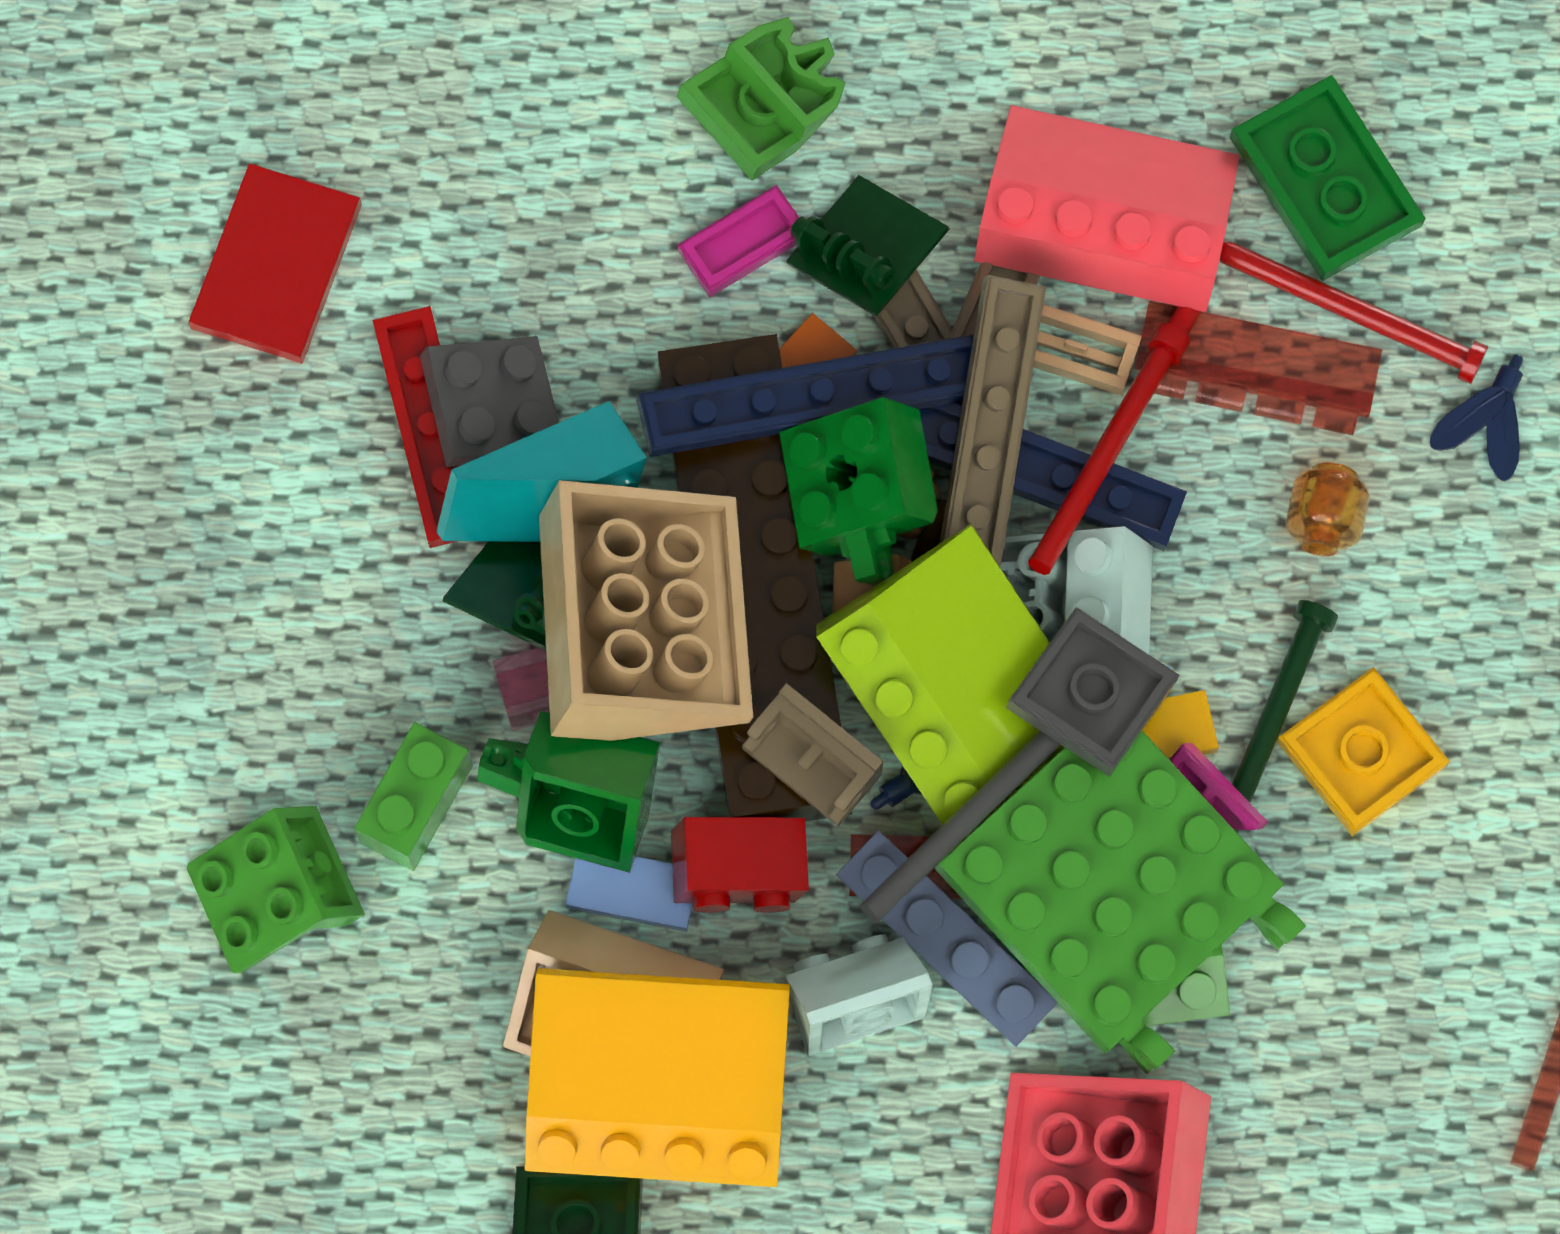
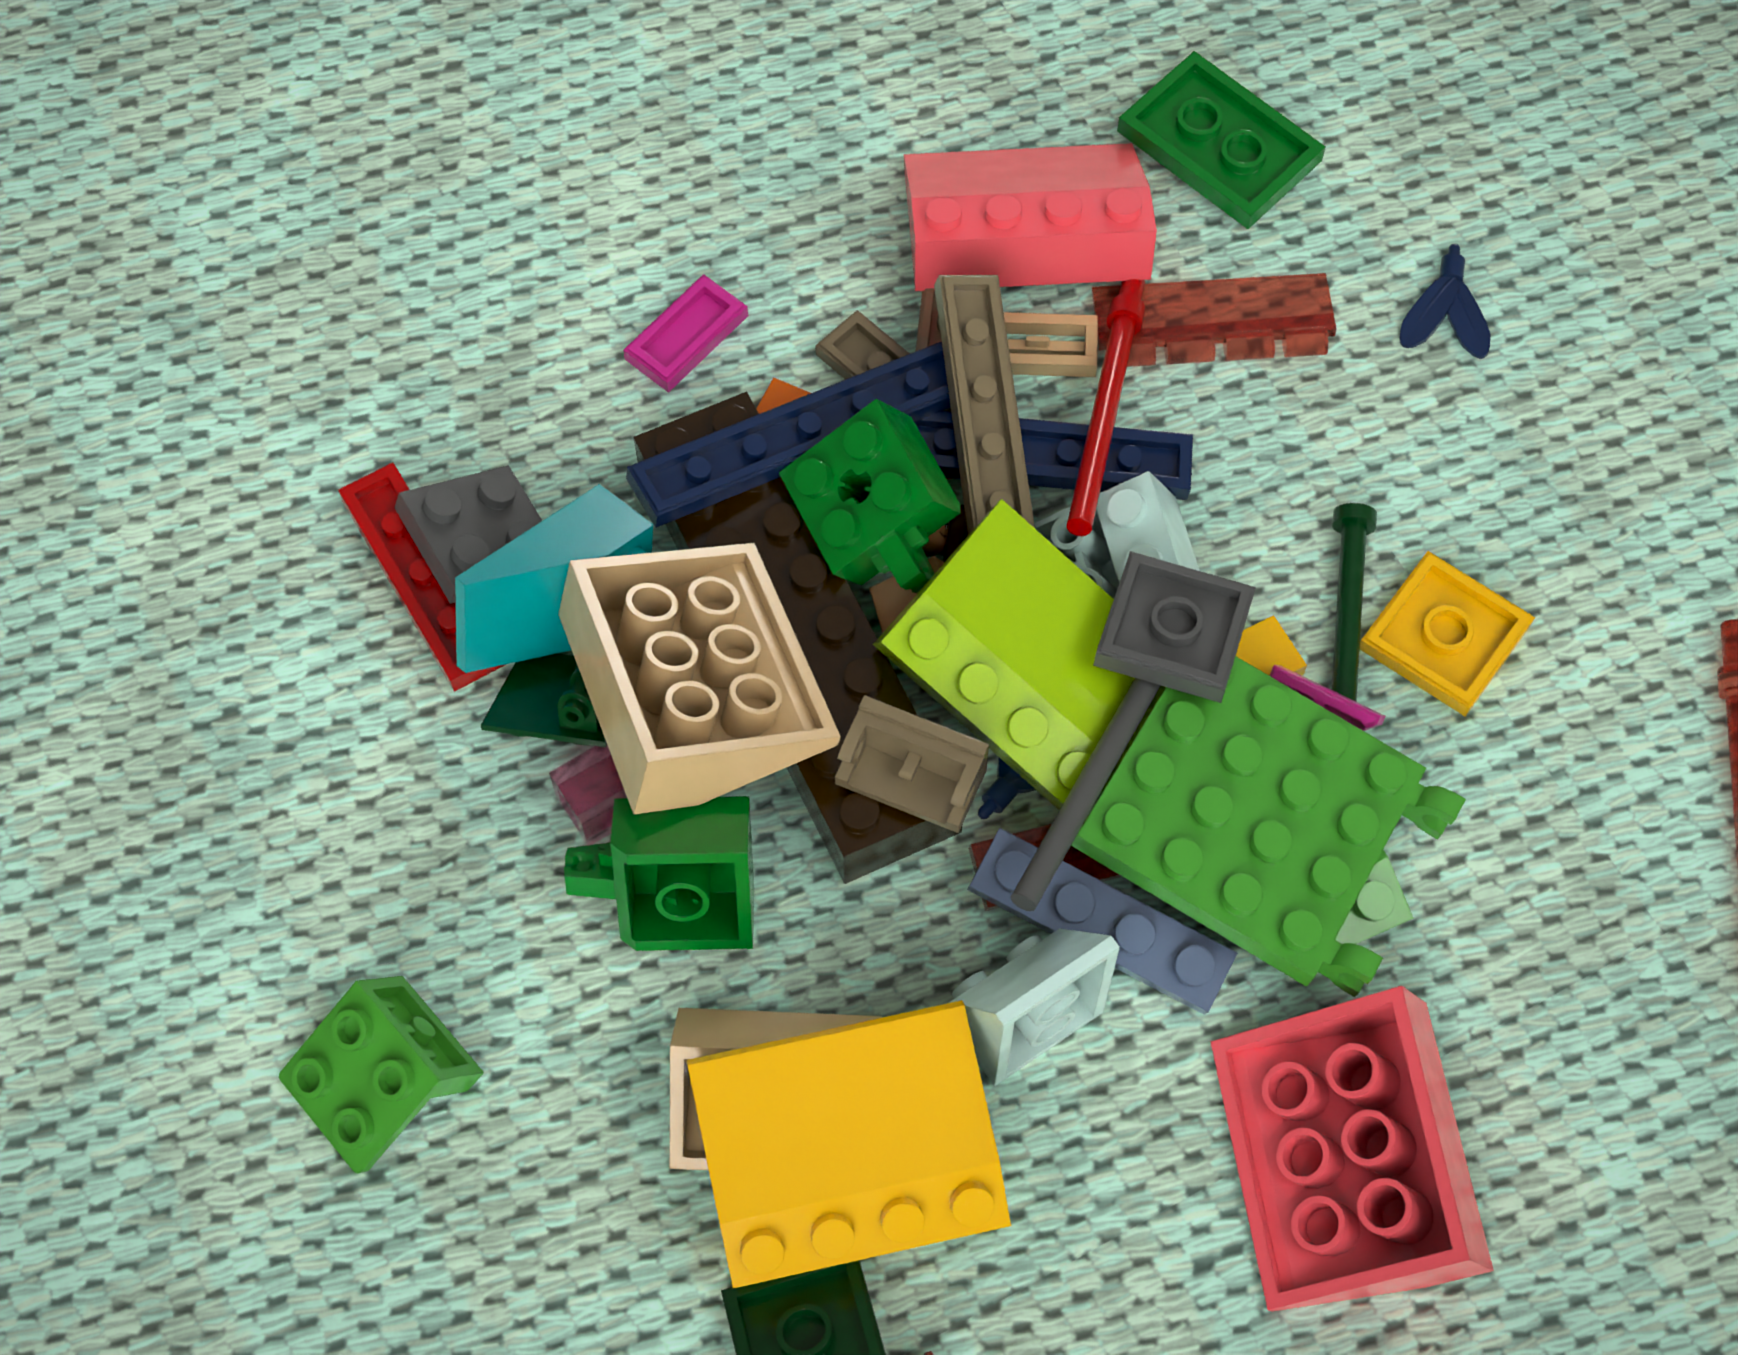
camera: 15 degrees left, 10 degrees down
(275, 263) = (226, 469): red tile -> none
(413, 796) = (503, 933): bright green brick -> none
(636, 896) = (778, 967): light blue tile -> none
(739, 862) = (864, 903): red brick -> none
(764, 96) = (667, 199): bright green plate -> none
(865, 244) = (805, 302): dark green hinge -> none
(1327, 509) = (1331, 418): clear orange head -> none
(1356, 310) = (1406, 259): red bar -> none

